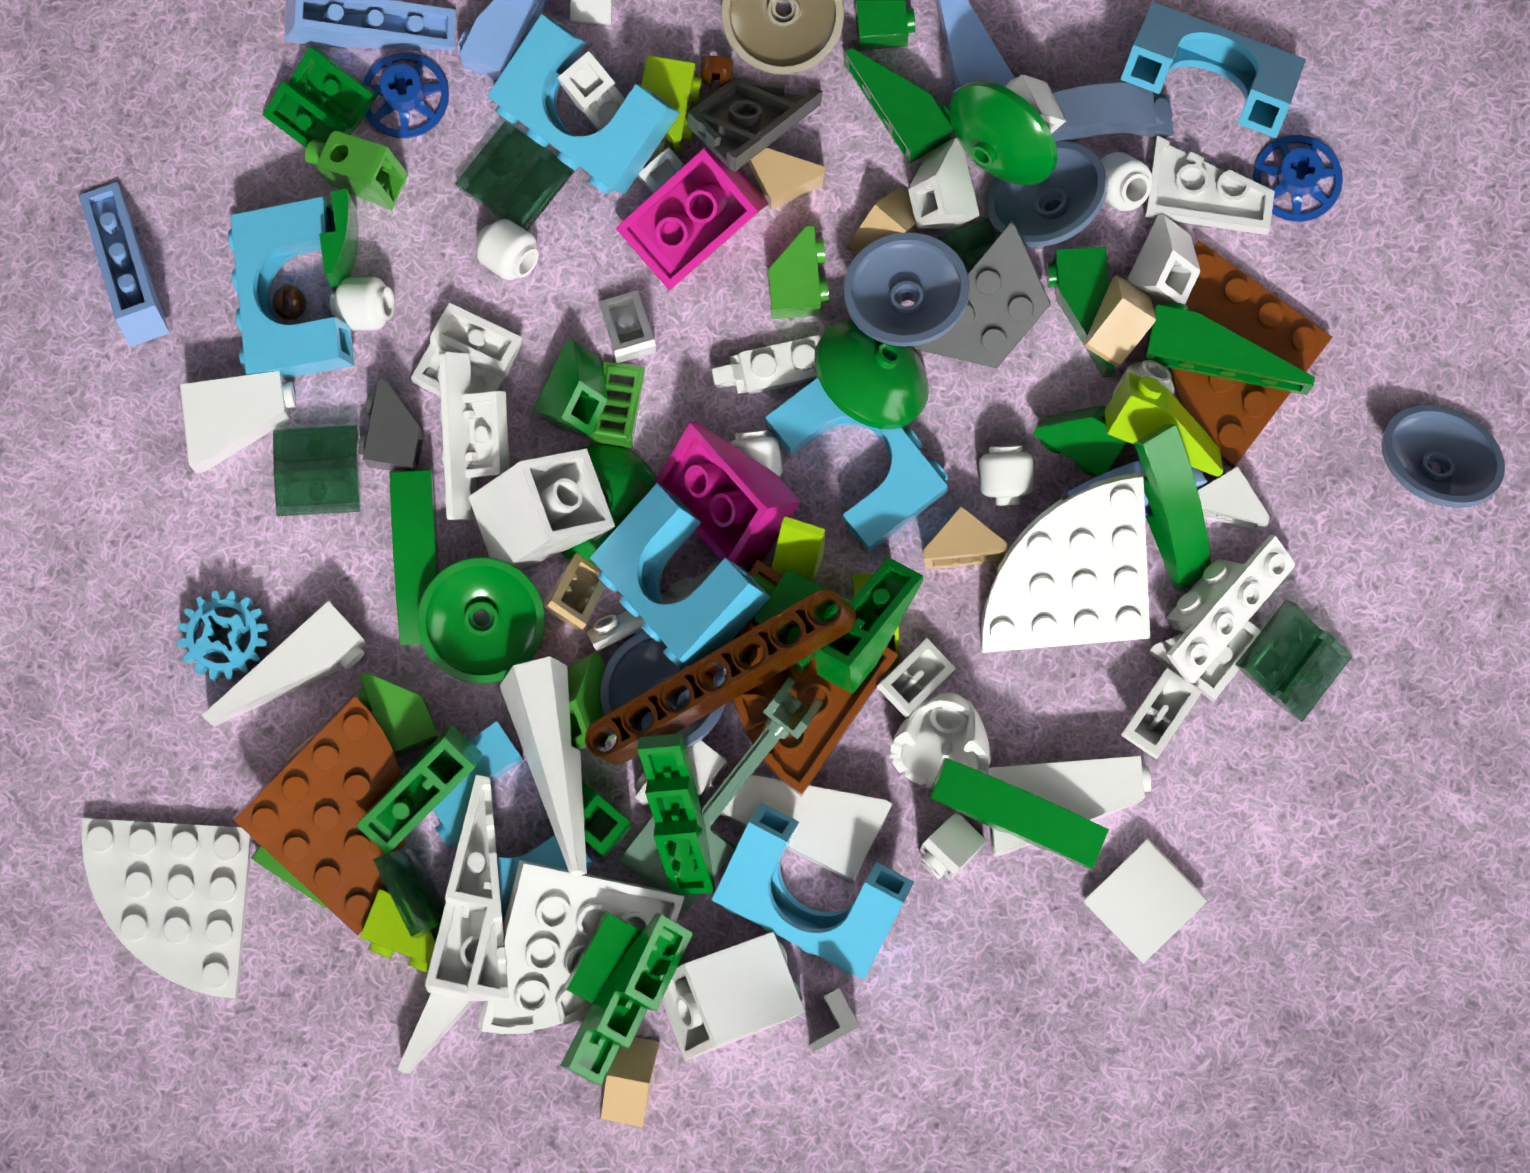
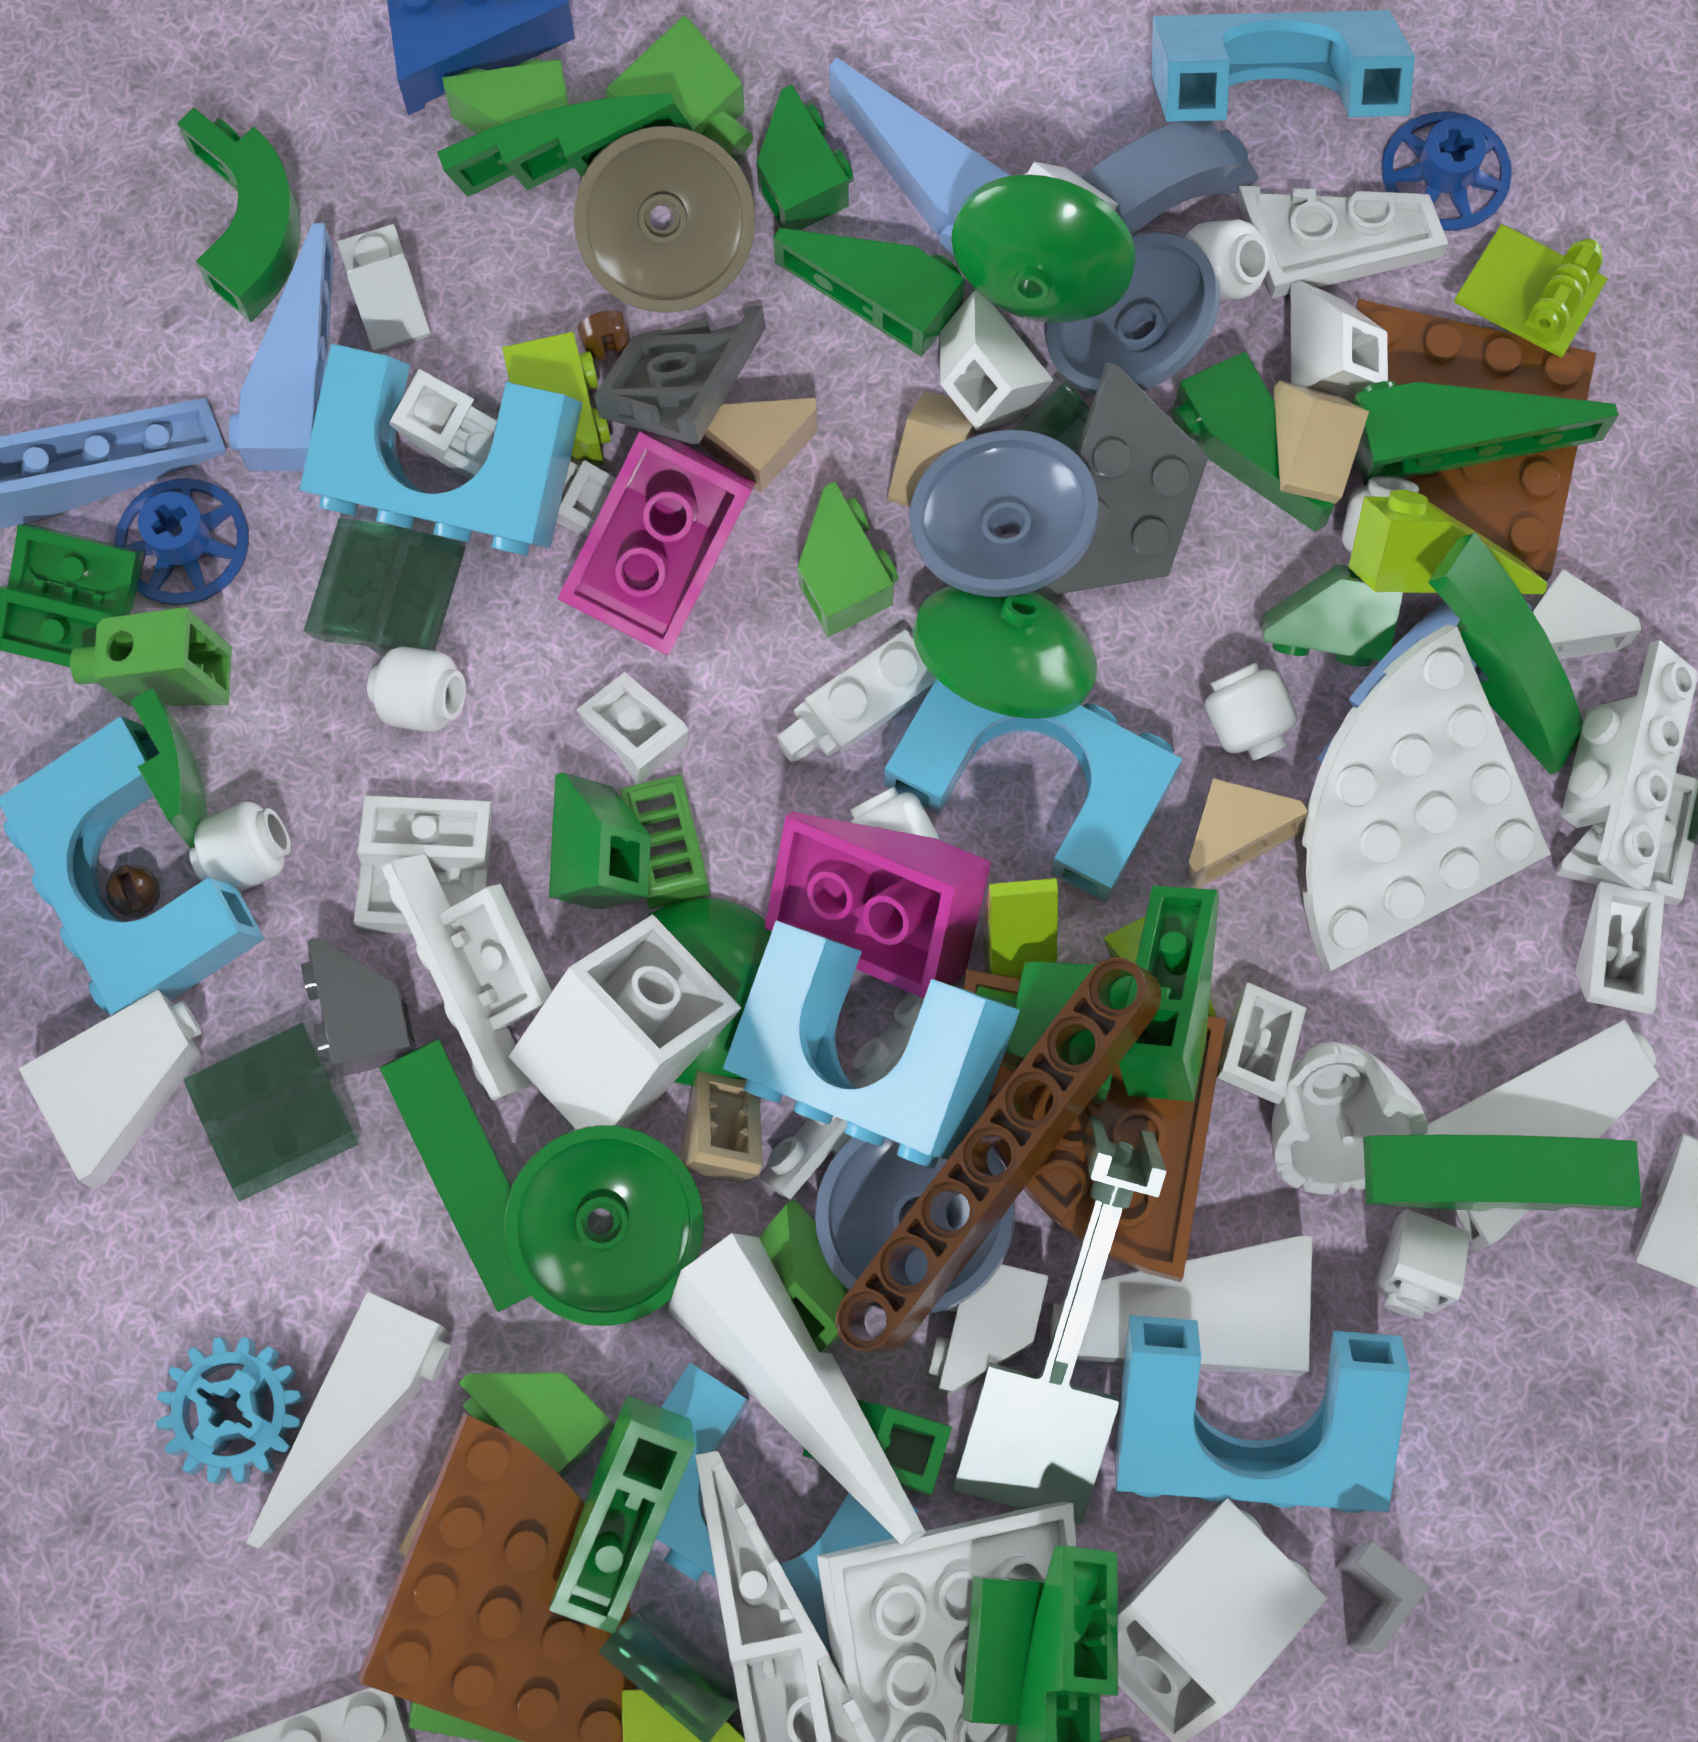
camera: 25 degrees left, 5 degrees down
(677, 814) = (1017, 1385): green slope -> none
(1312, 279) = (1535, 288): none -> lime hinge

